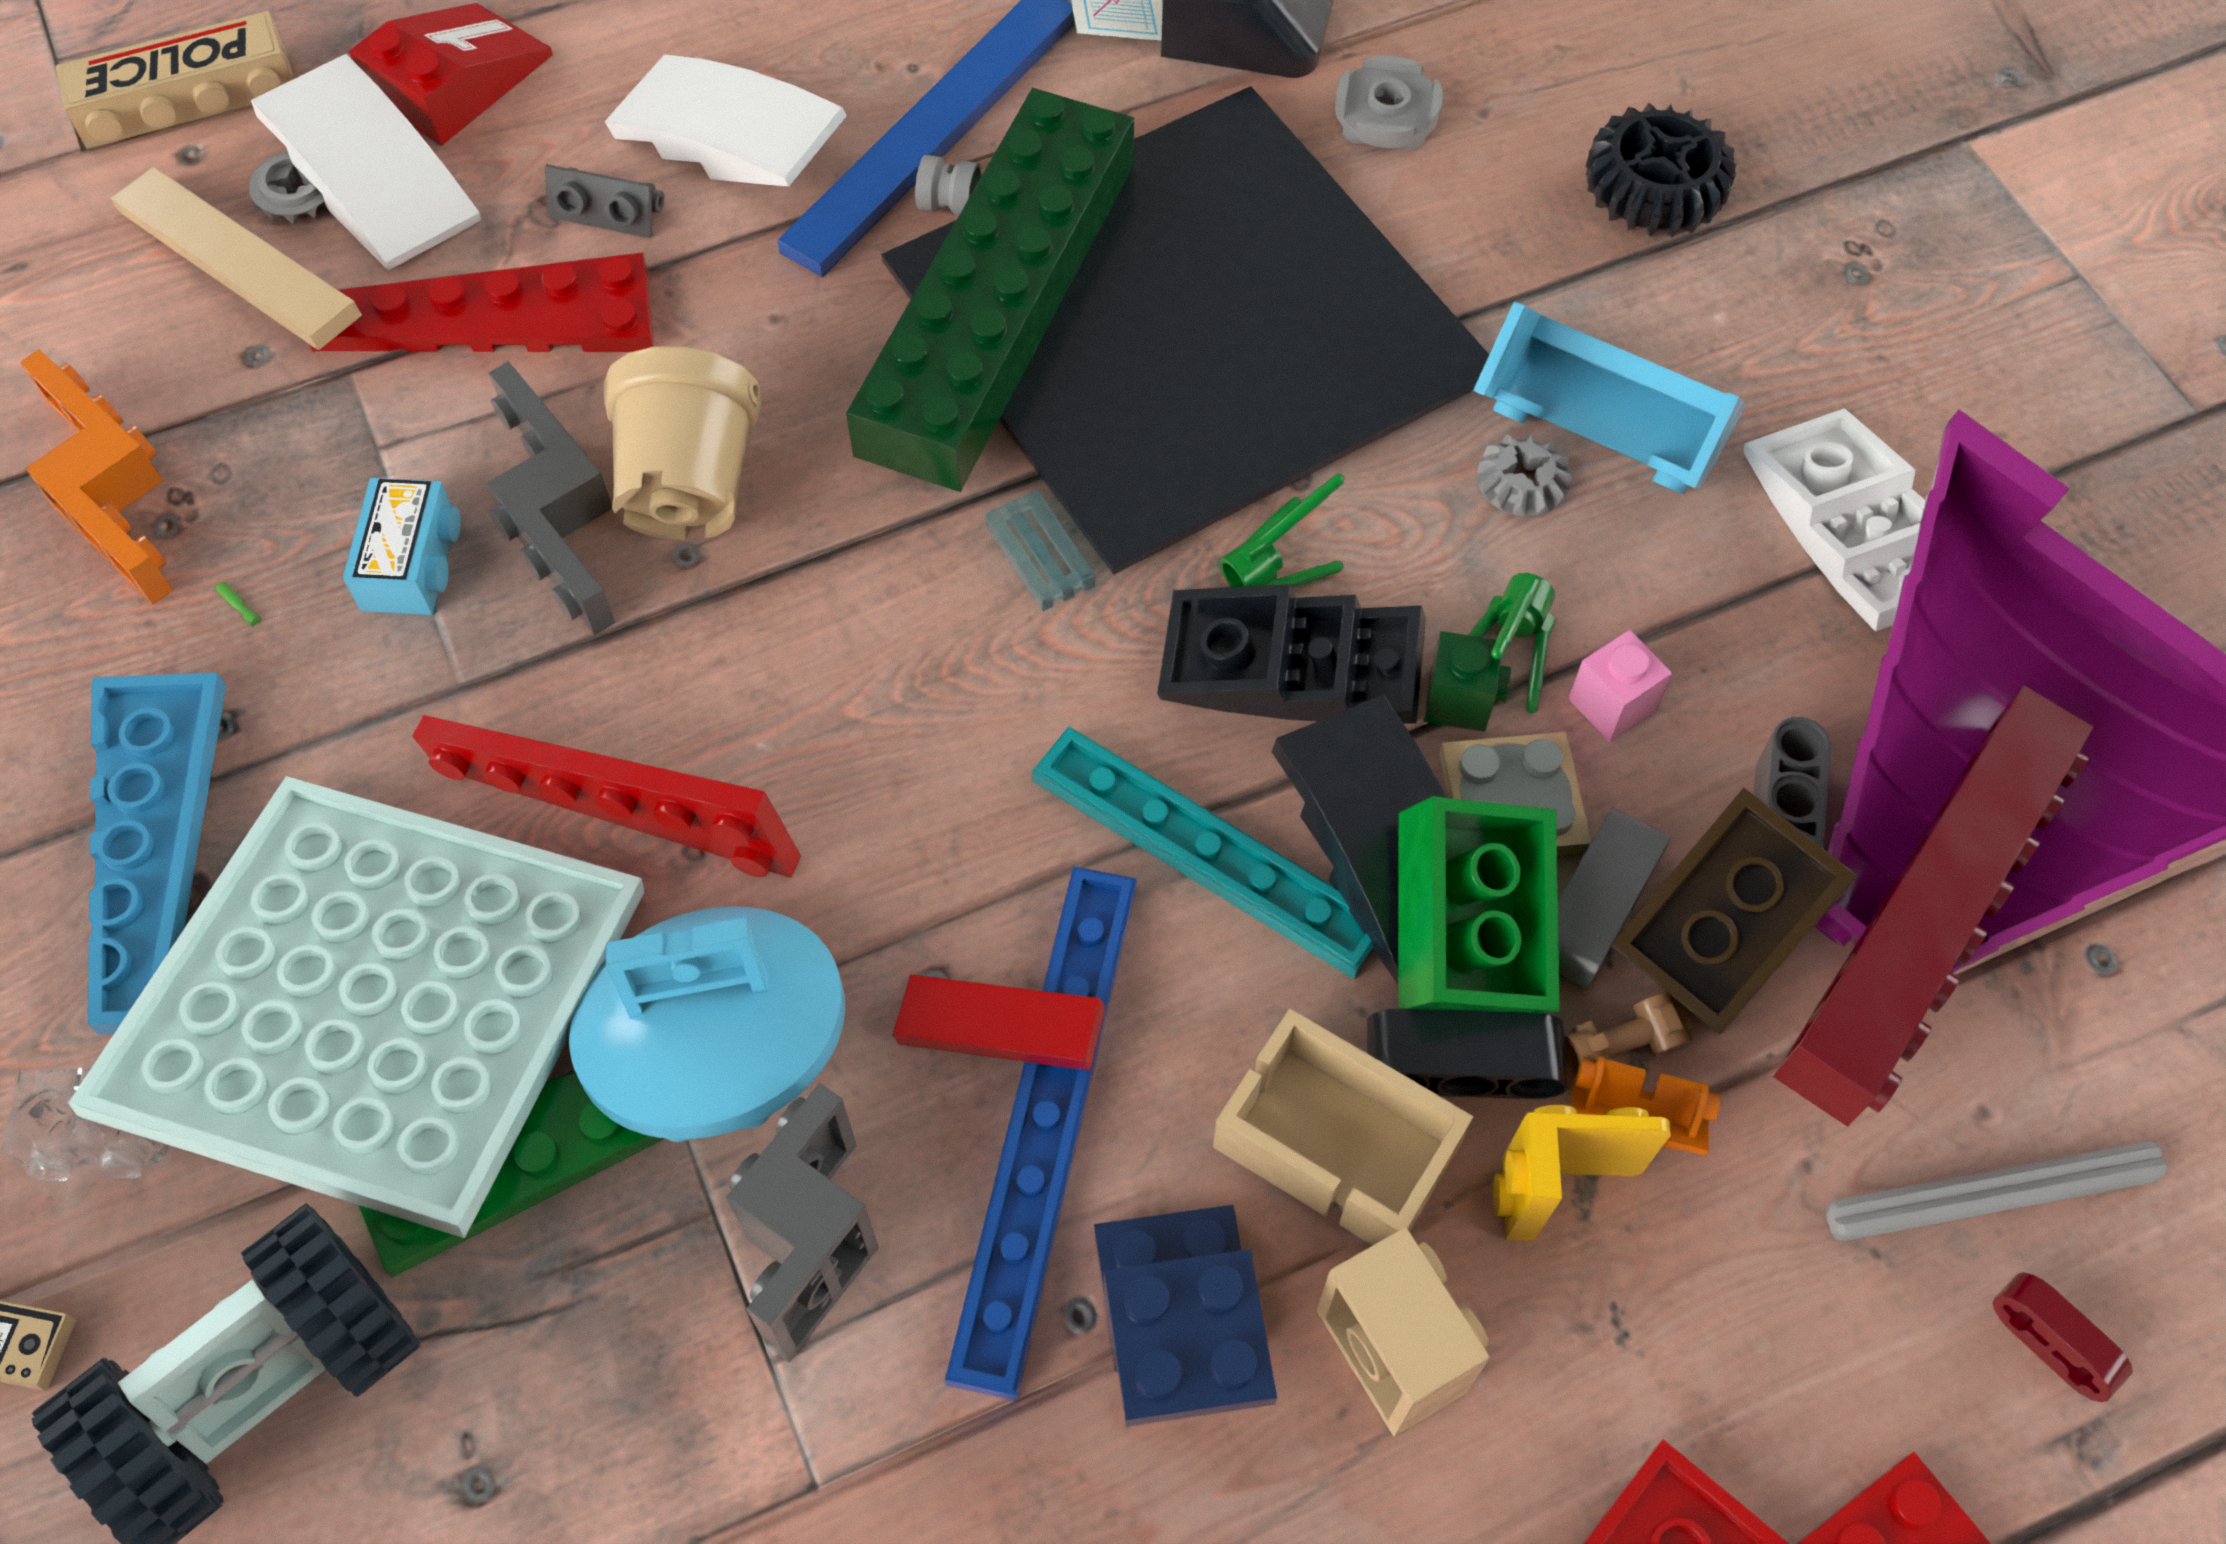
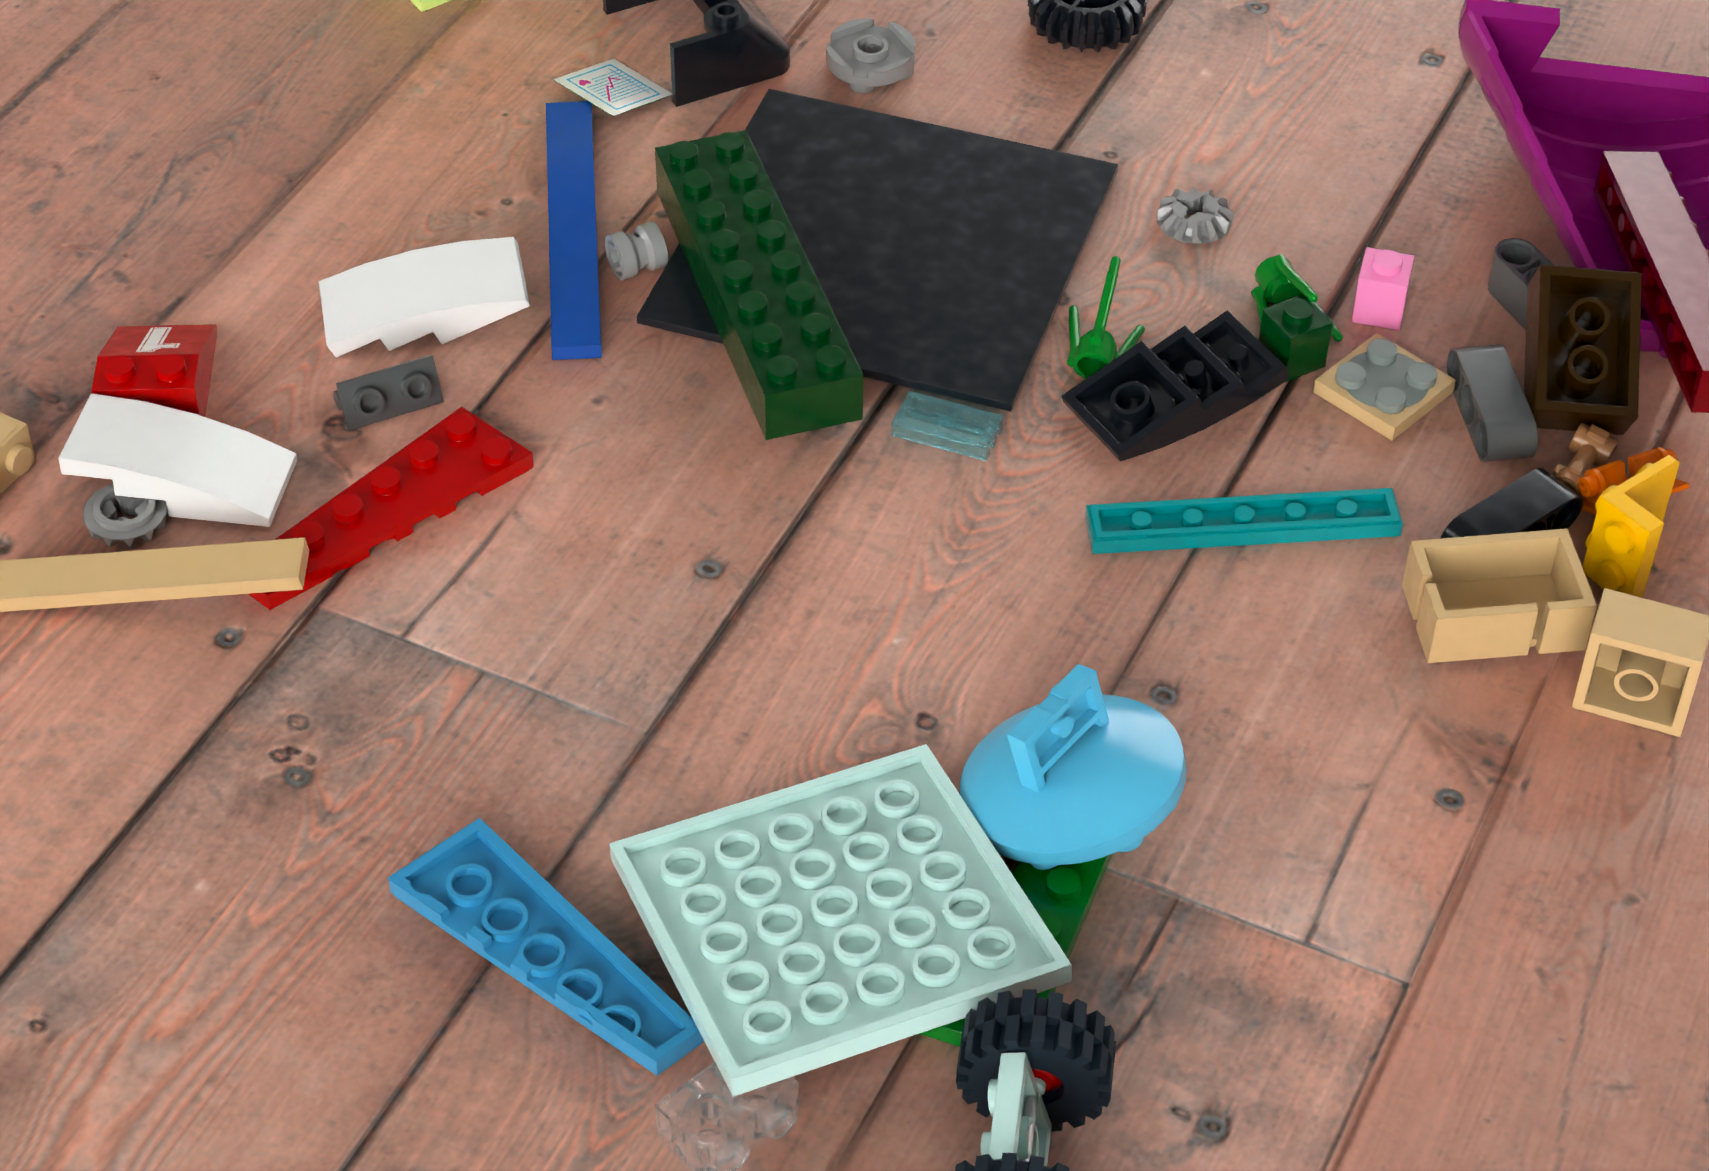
camera: 40 degrees left, 15 degrees down
(98, 474) = (217, 767): orange bracket -> none
(237, 603) = (417, 786): bright green piece -> none
(401, 546) = (515, 670): brick -> none
(549, 499) = (586, 580): dark grey bracket -> none
(645, 798) = (895, 691): red wing -> none
(679, 438) = (656, 482): tan piece -> none
(802, 1220) = (1262, 835): dark grey bracket -> none
(999, 1022) = (1238, 675): red tile -> none
(1038, 1153) = (1324, 721): blue tile -> none
(1183, 1316) = (1525, 734): dark blue bracket -> none
(1354, 782) = (1350, 436): black slope -> none
(1477, 907) = (1447, 431): green brick -> none
(1608, 397) = (1216, 139): medium azure windscreen -> none
(1845, 505) = (1405, 132): white slope -> none

